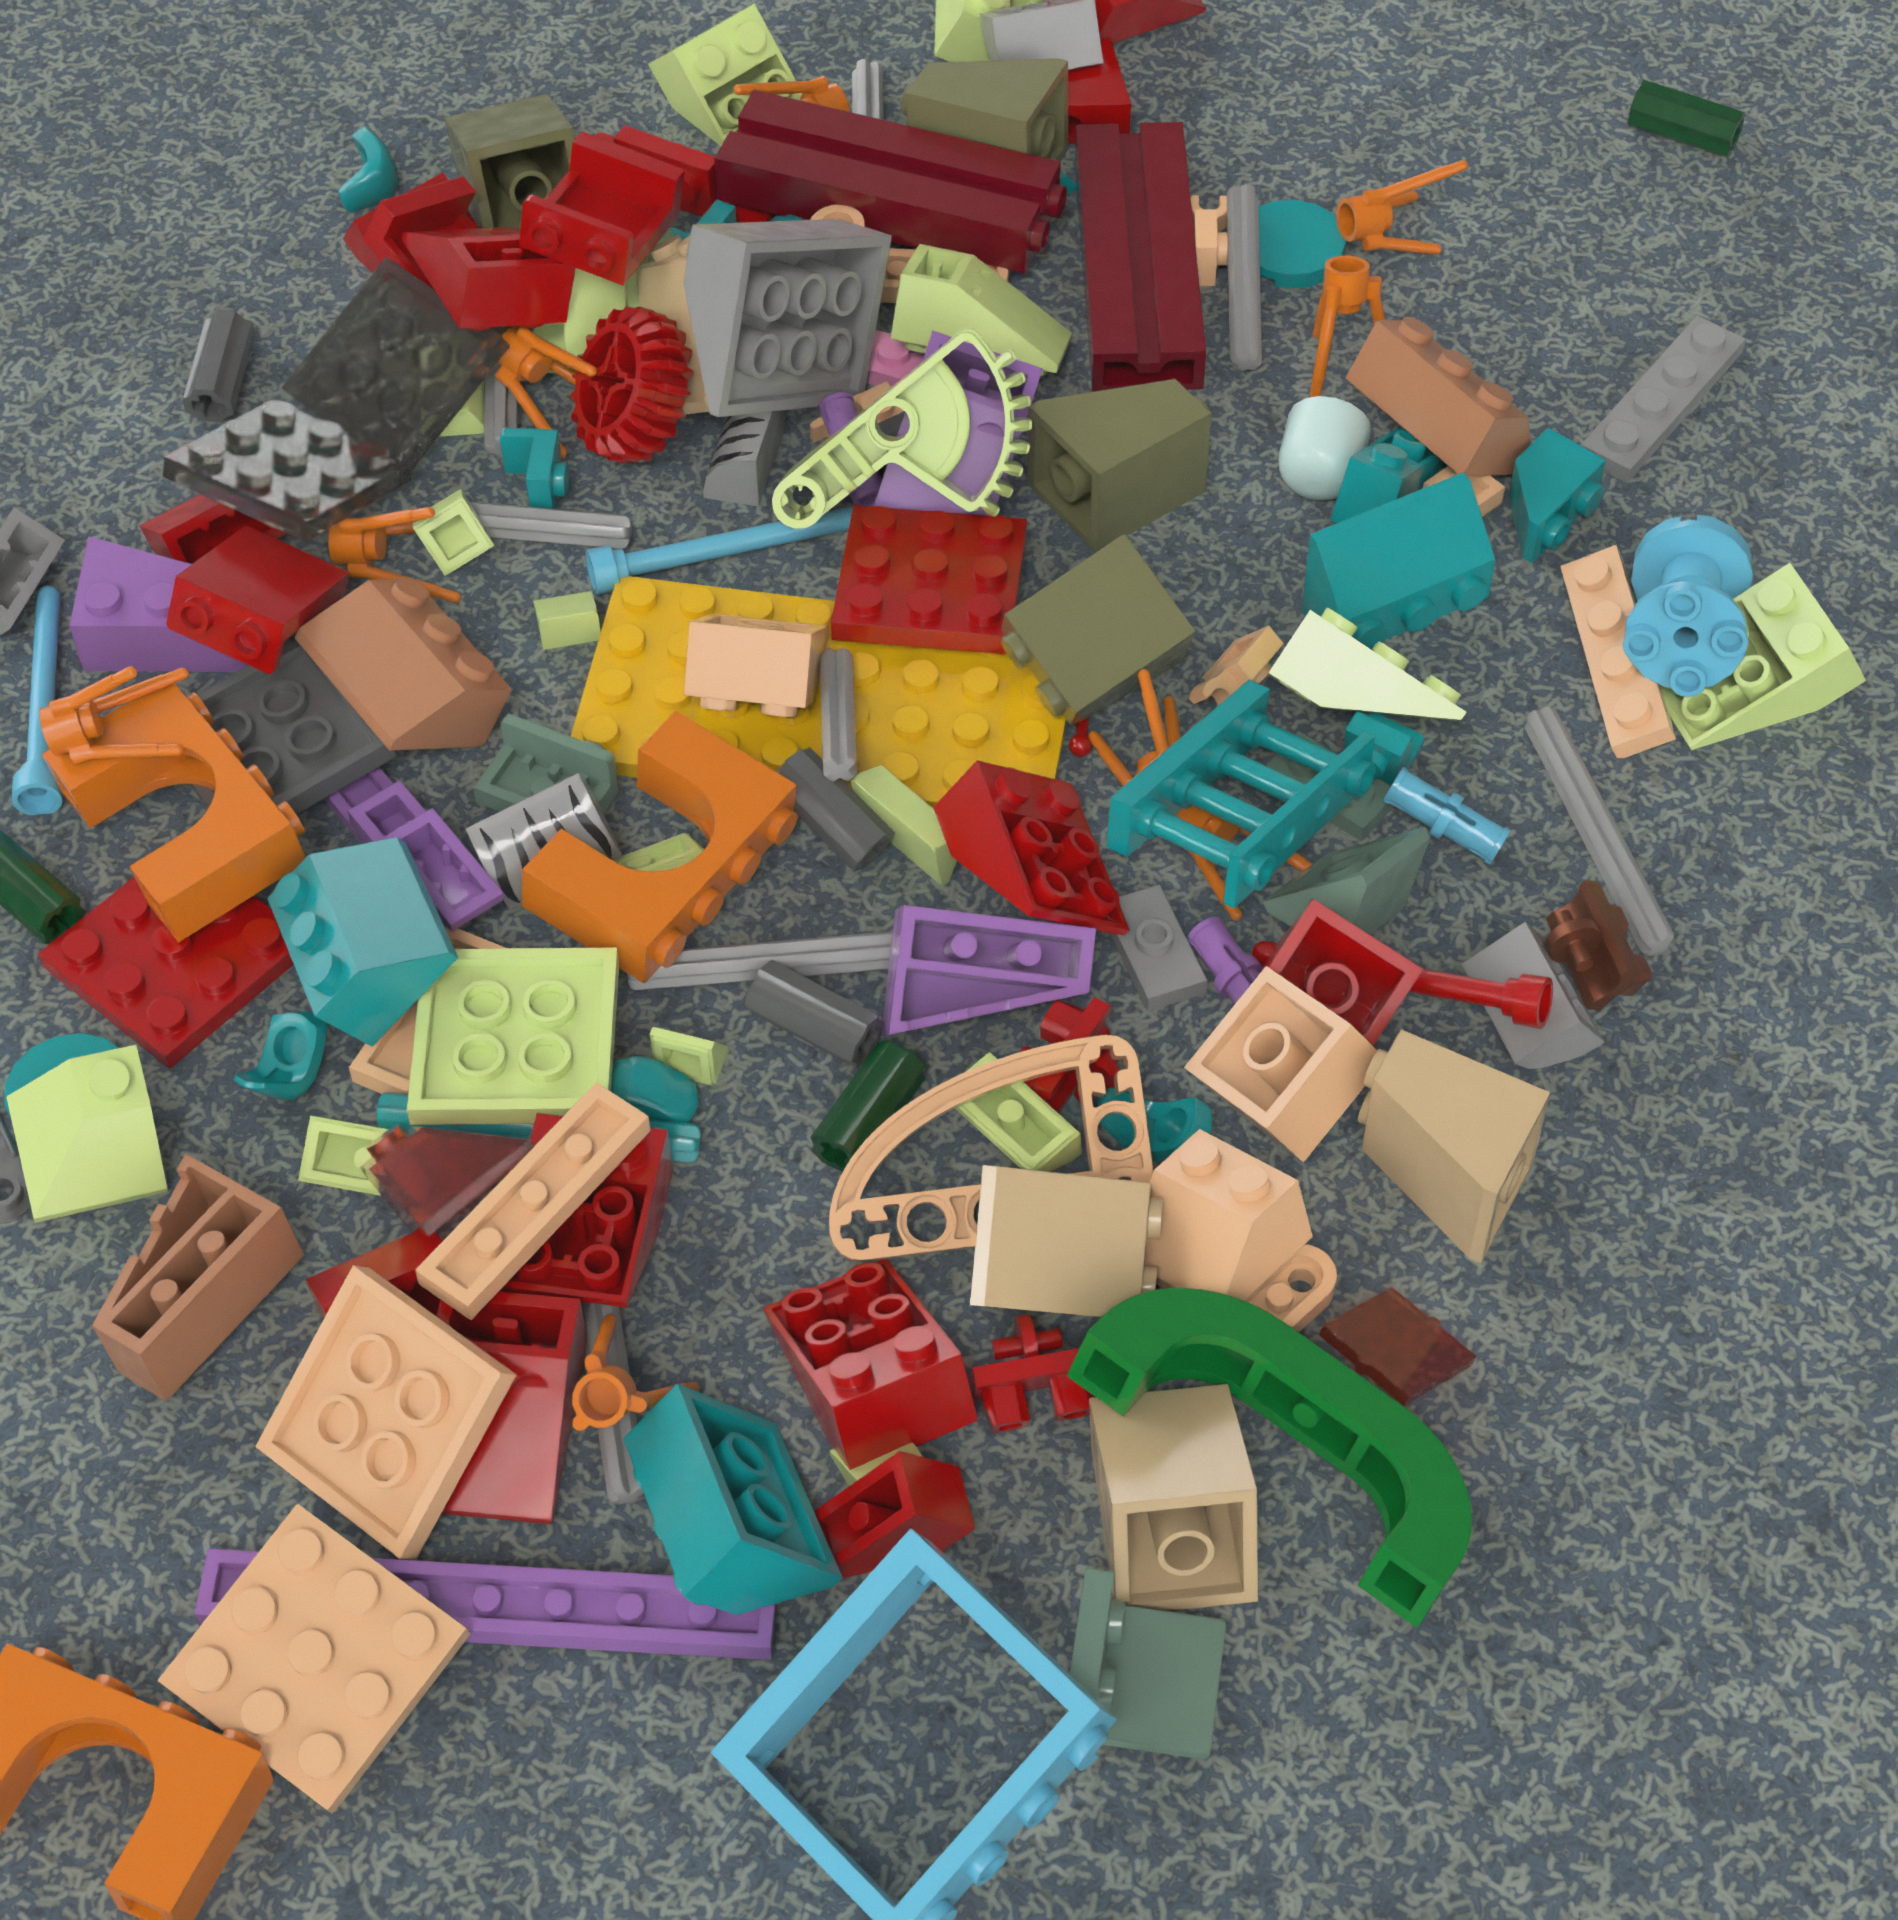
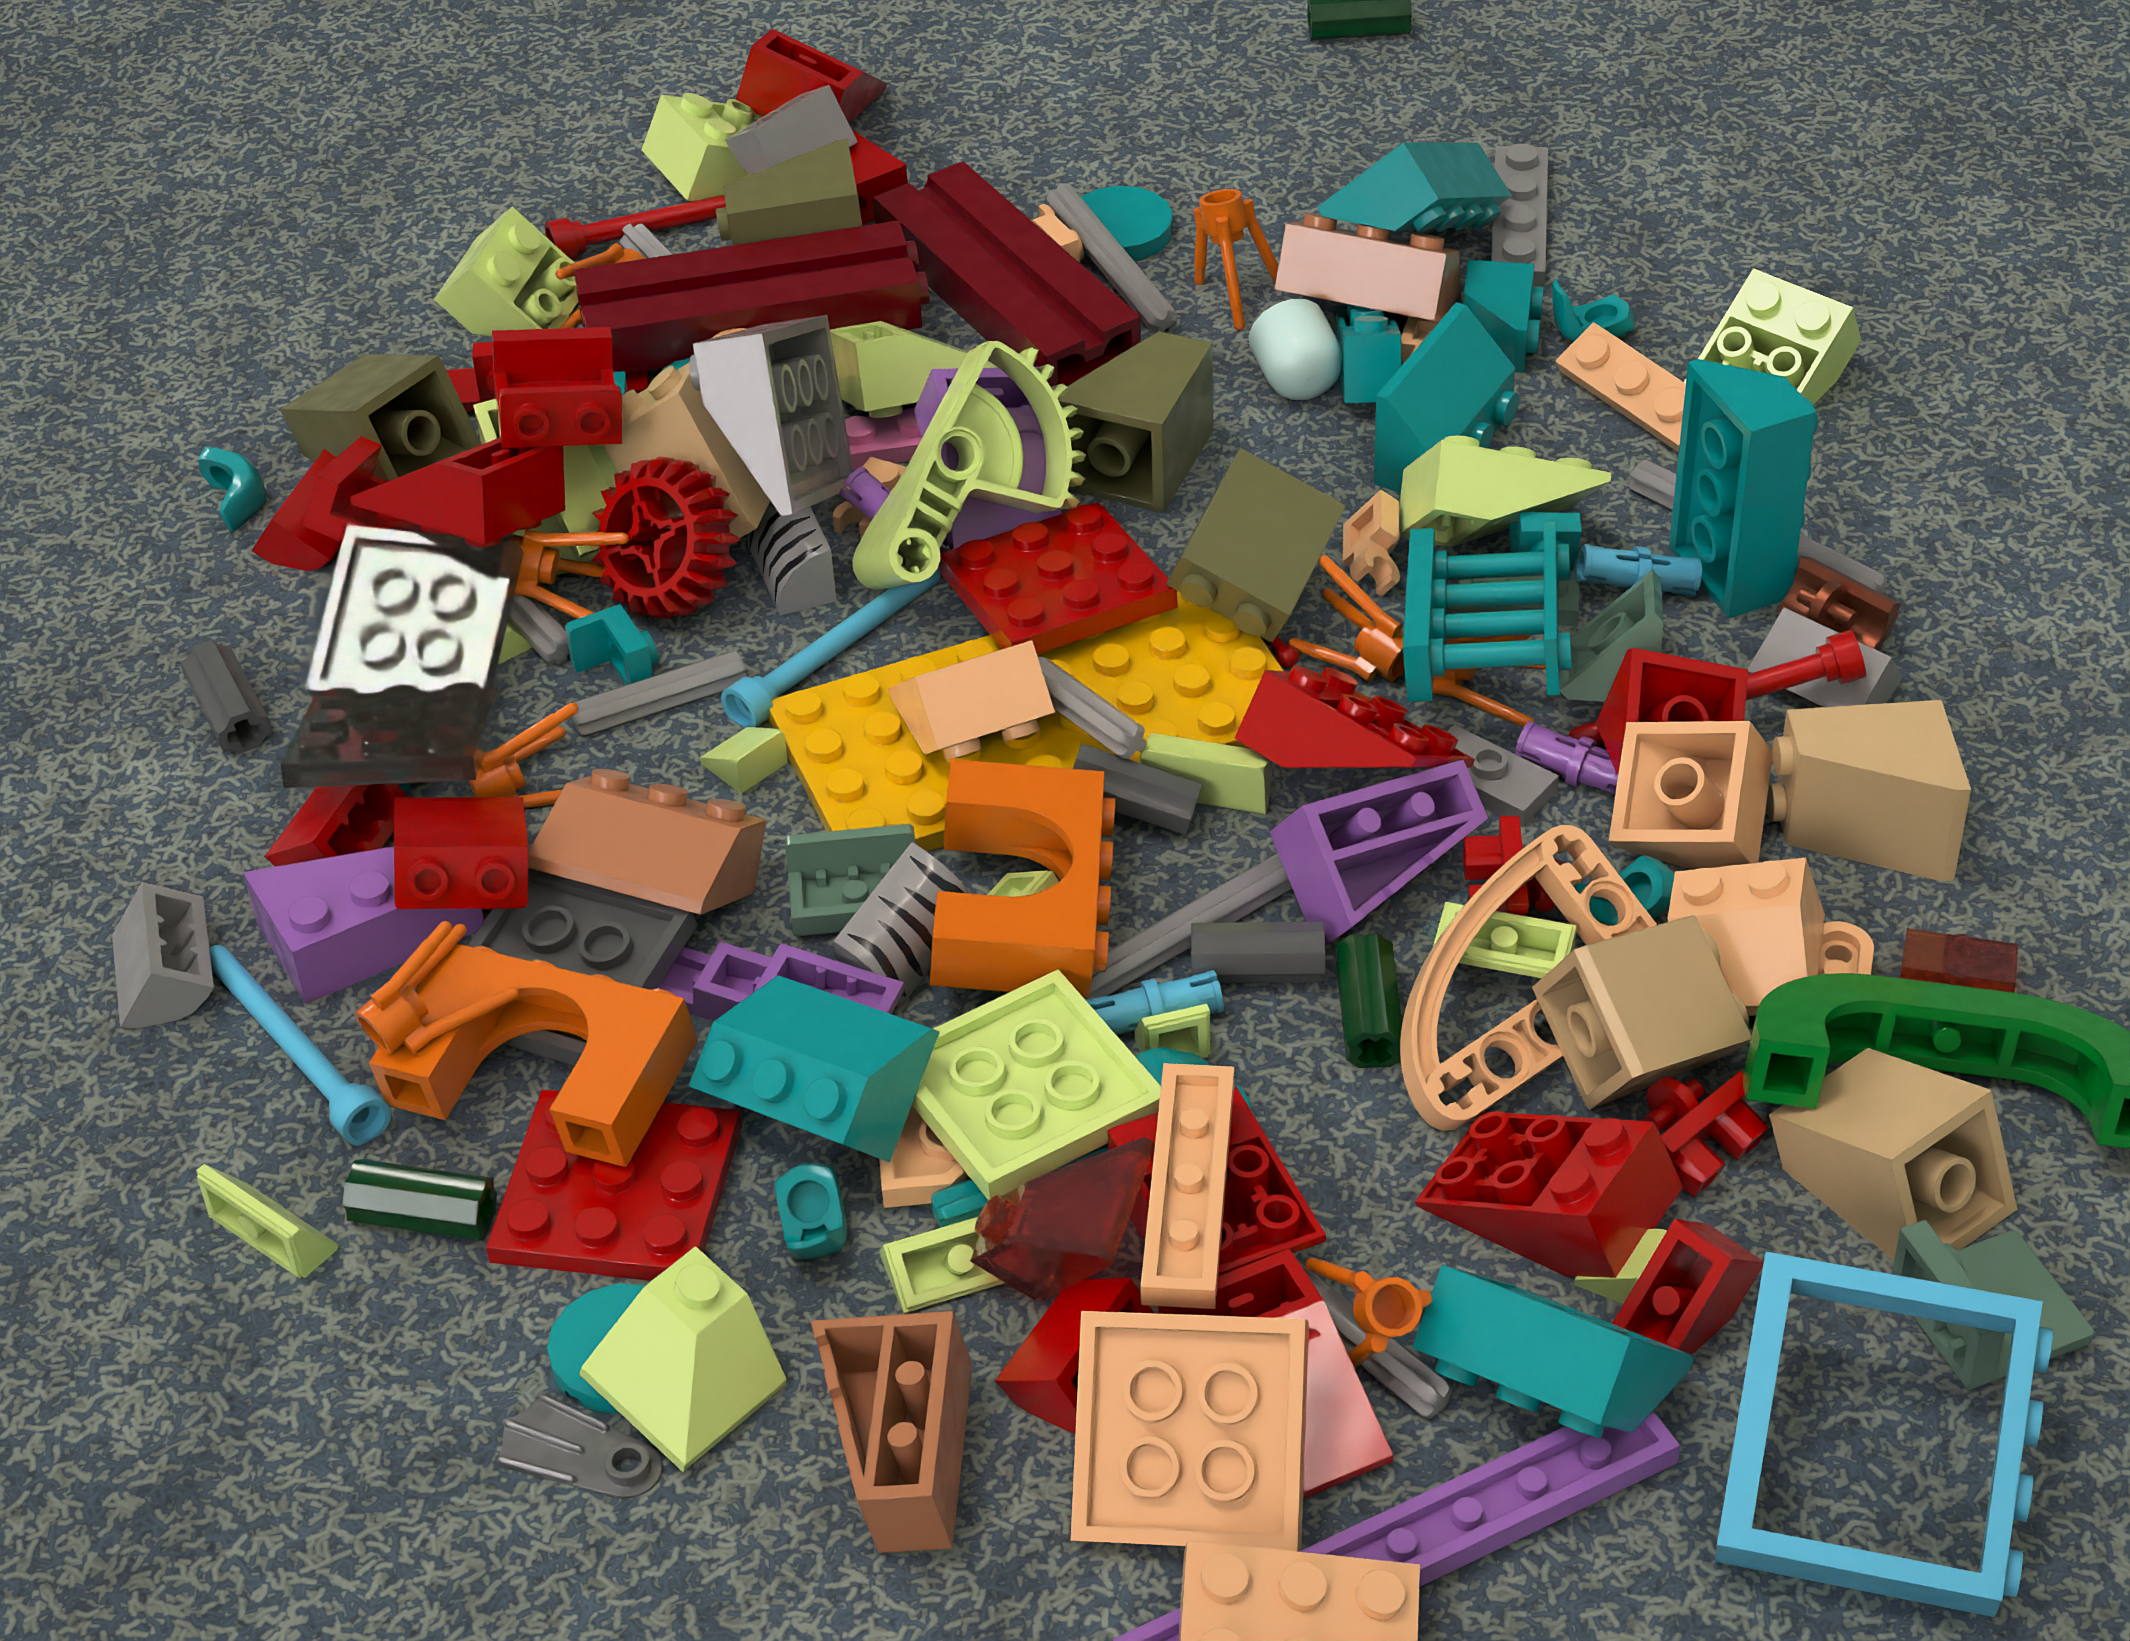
camera: 30 degrees left, 10 degrees down
(453, 533) = (586, 736): yellowish green slope -> none
(695, 1016) = (1125, 1010): none -> medium azure pin
(811, 51) = (574, 237): none -> red piece
(1371, 214) = (1179, 170): orange plant -> none
(1545, 342) = (1423, 189): none -> teal slope
(1563, 786) = (1742, 482): none -> teal slope
(1613, 529) = (1609, 313): none -> teal hair
(1685, 618) = (1689, 315): medium azure piece -> none

